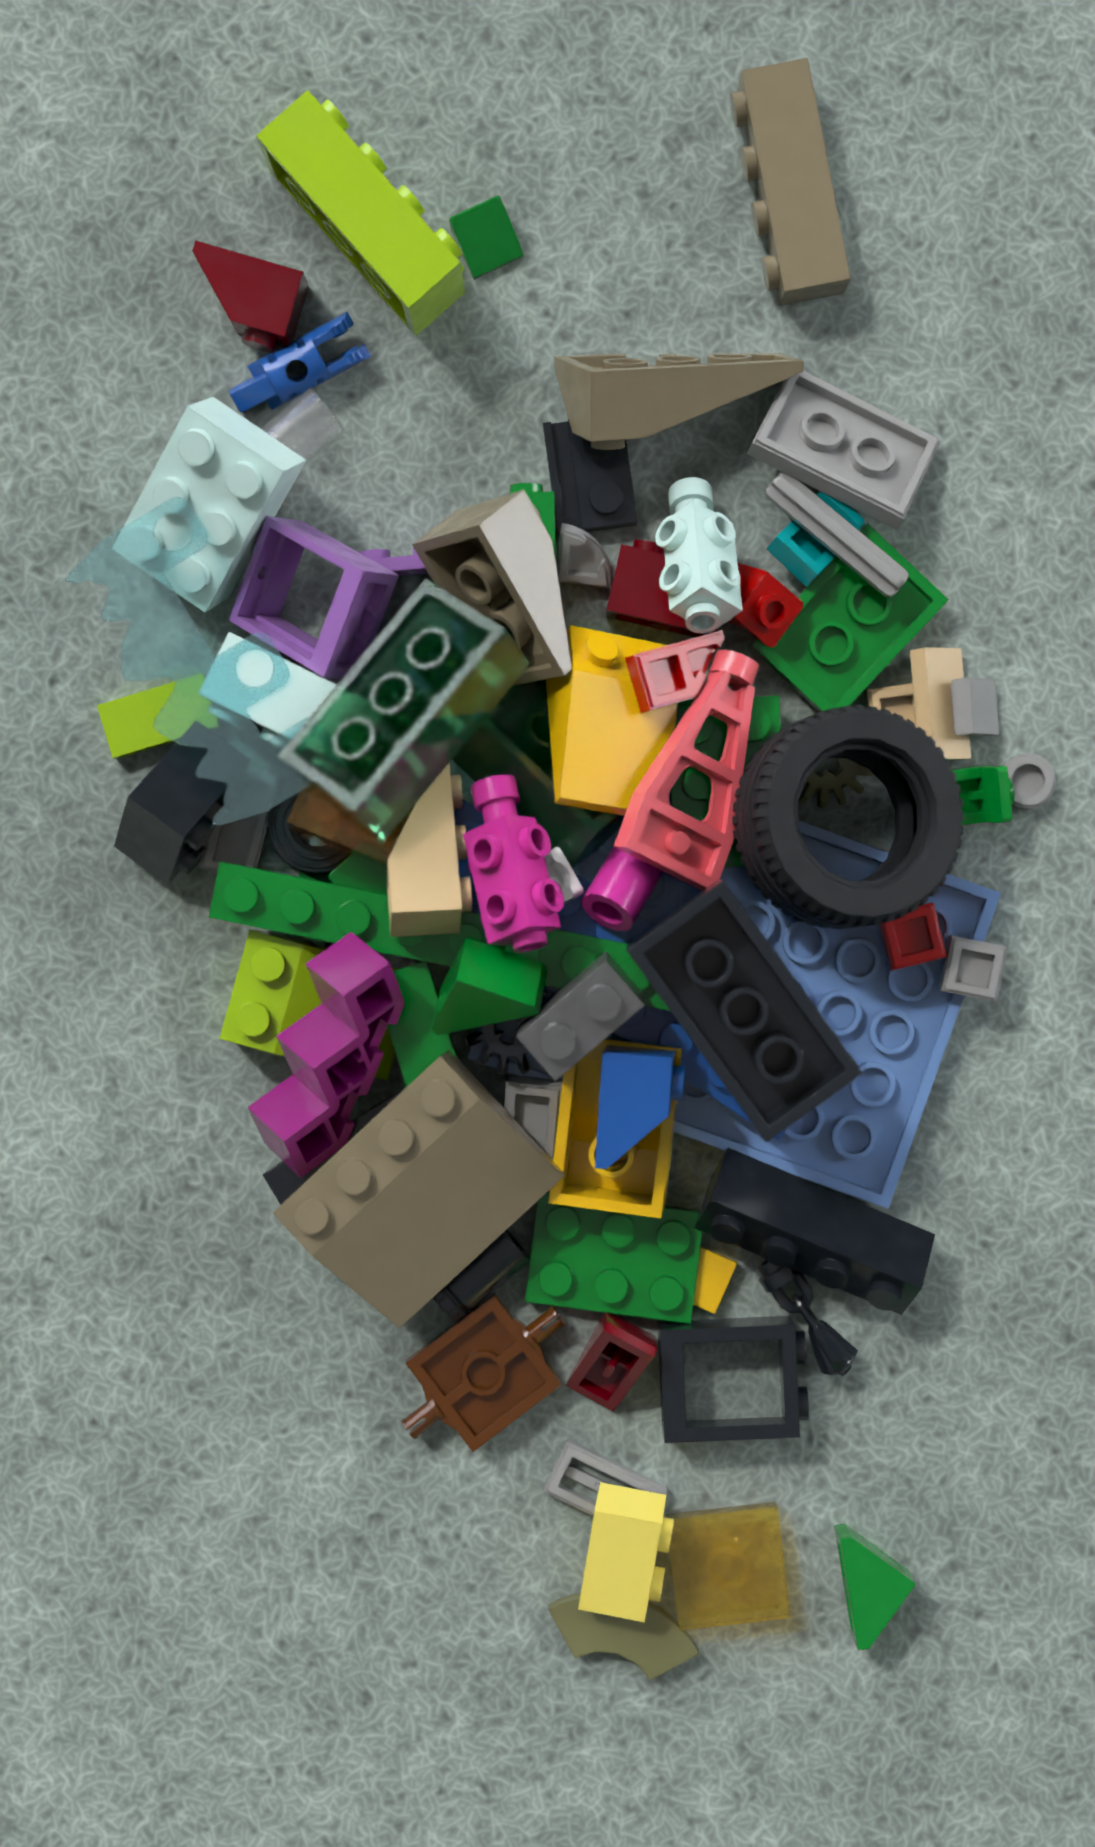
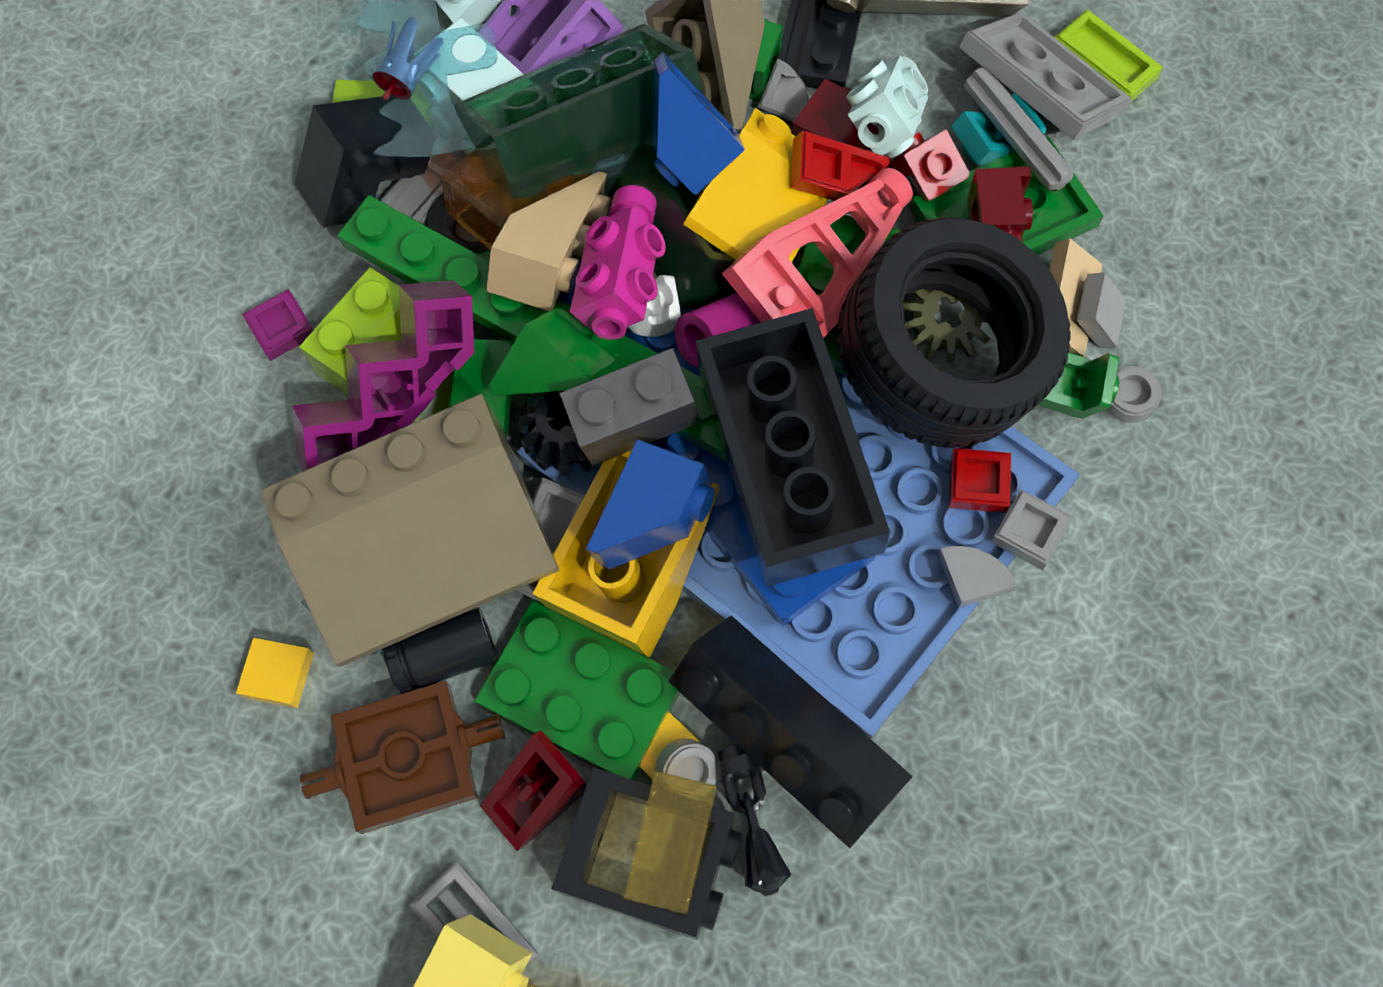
camera: 25 degrees right, 20 degrees down
(168, 1000) = (278, 324): none -> magenta tile
(201, 732) = (395, 73): none -> flat silver piece
(331, 1339) = (275, 673): none -> yellow tile
(531, 707) = (688, 131): none -> blue slope
(736, 1294) = (688, 760): none -> light grey tile
(753, 1372) = (670, 843): none -> clear yellow tile
(849, 647) = (999, 199): none -> dark red brick
(900, 387) = (1110, 54): none -> lime tile
(934, 1032) = (974, 574): none -> light grey tile

